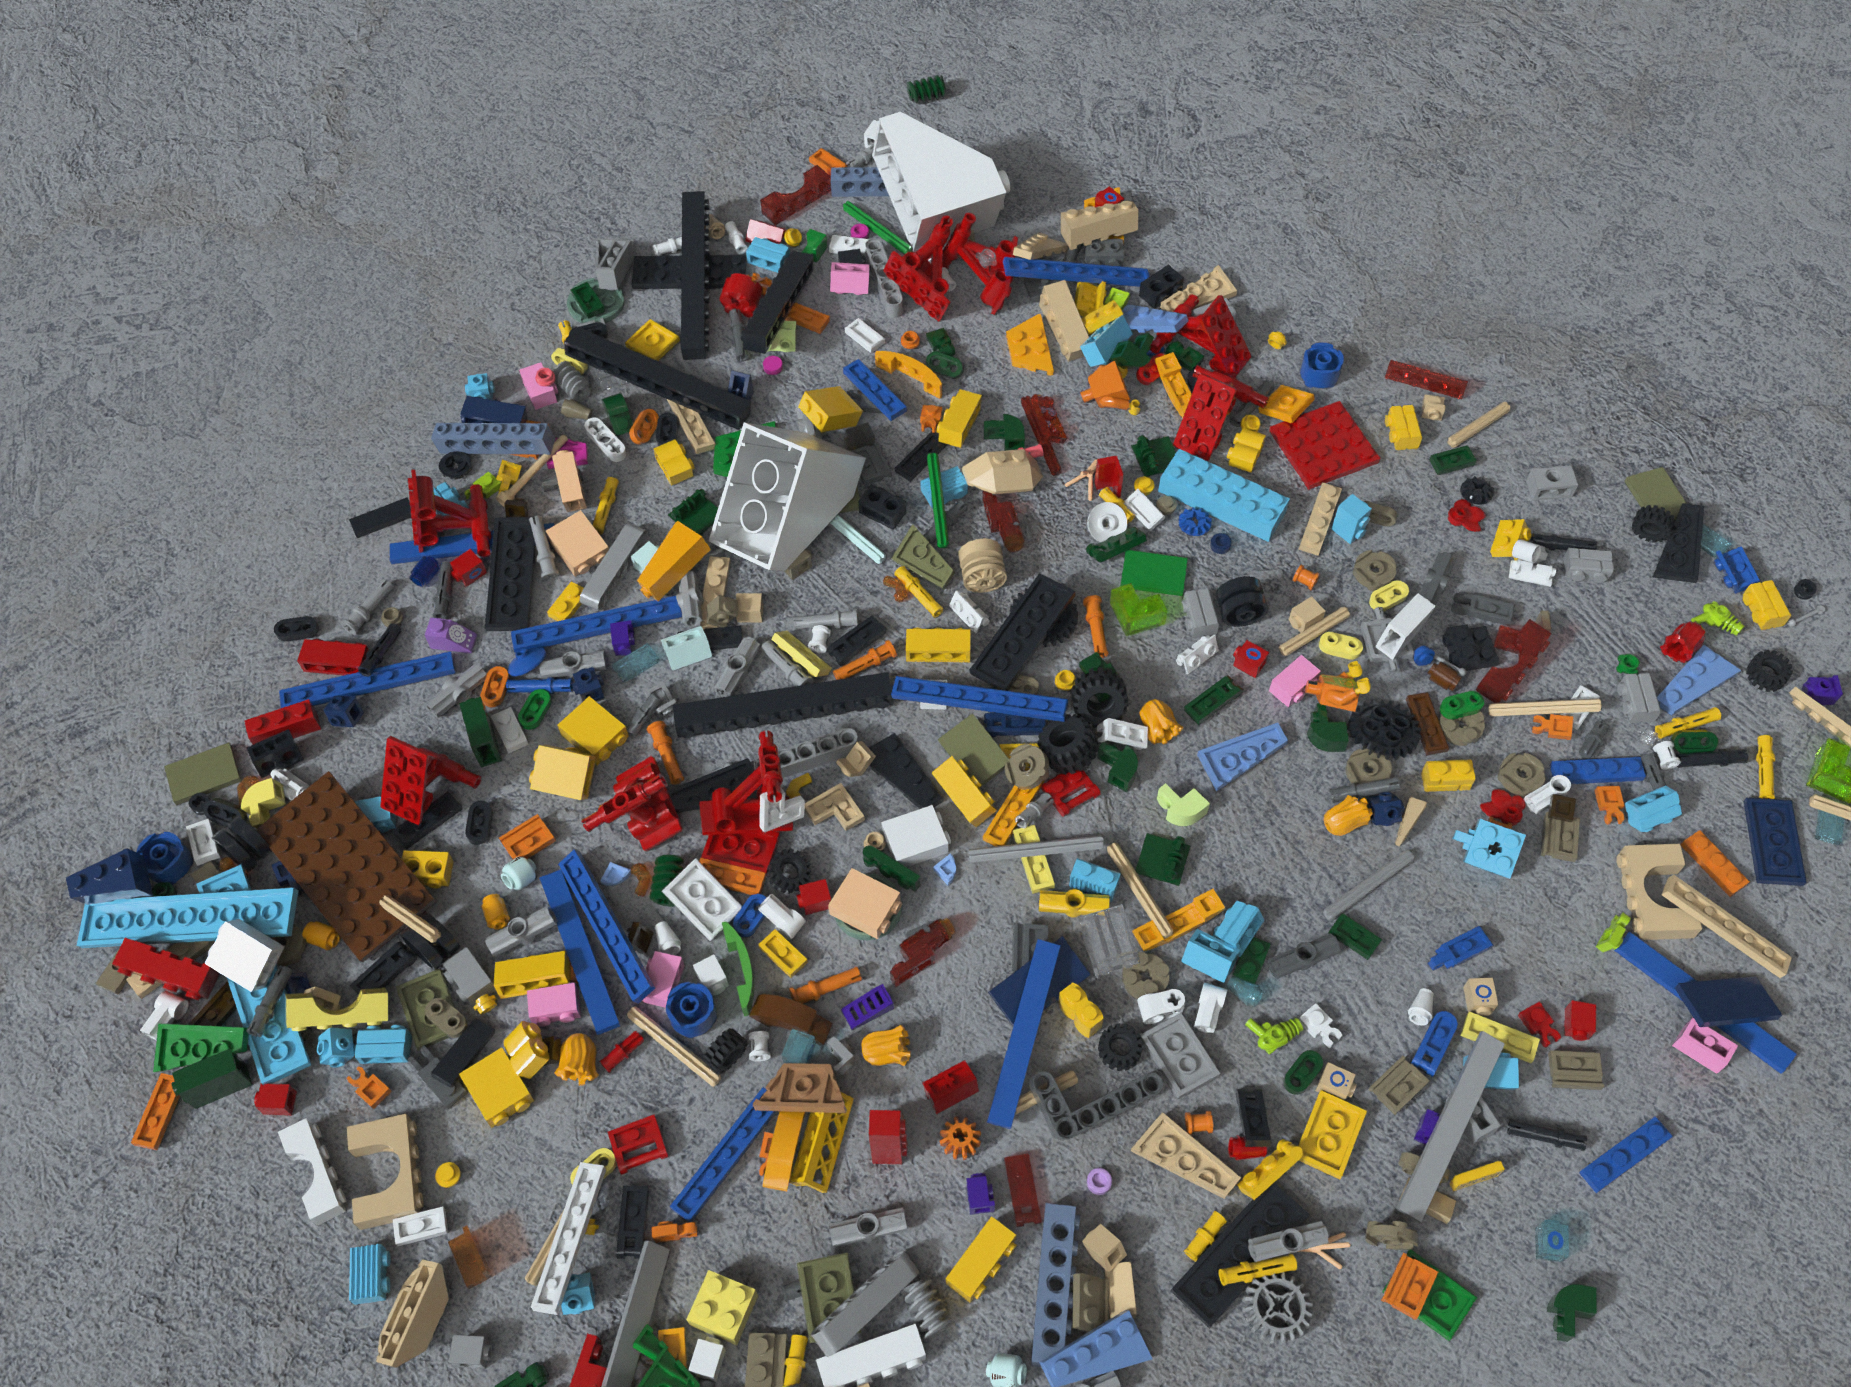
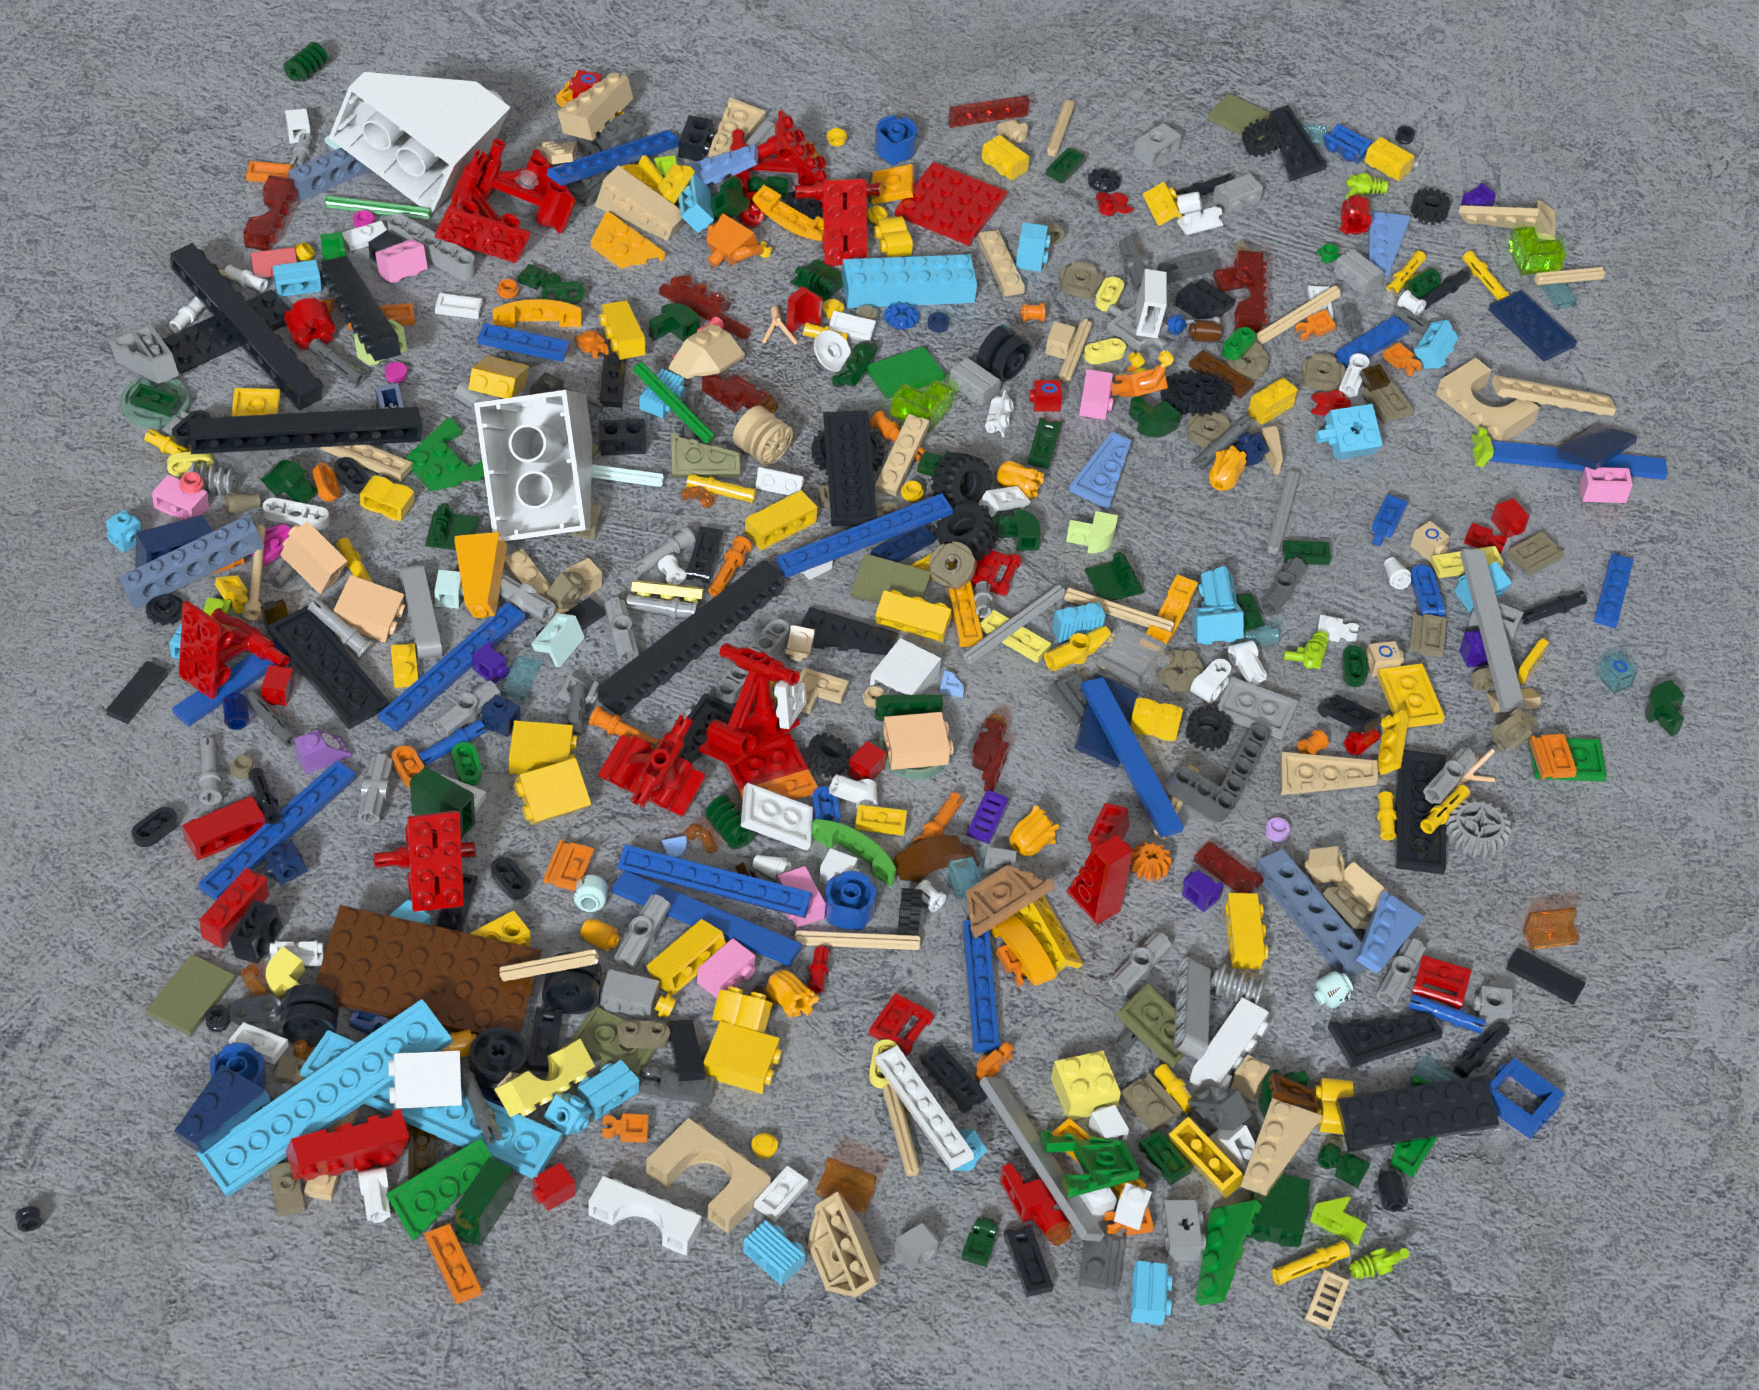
camera: 45 degrees left, 10 degrees down
(331, 966) = (497, 1054): none -> black wheel
(526, 661) = (420, 728): blue dish -> none
(1082, 644) = (902, 455): none -> tan plate
(1715, 863) = (1507, 362): orange plate -> none

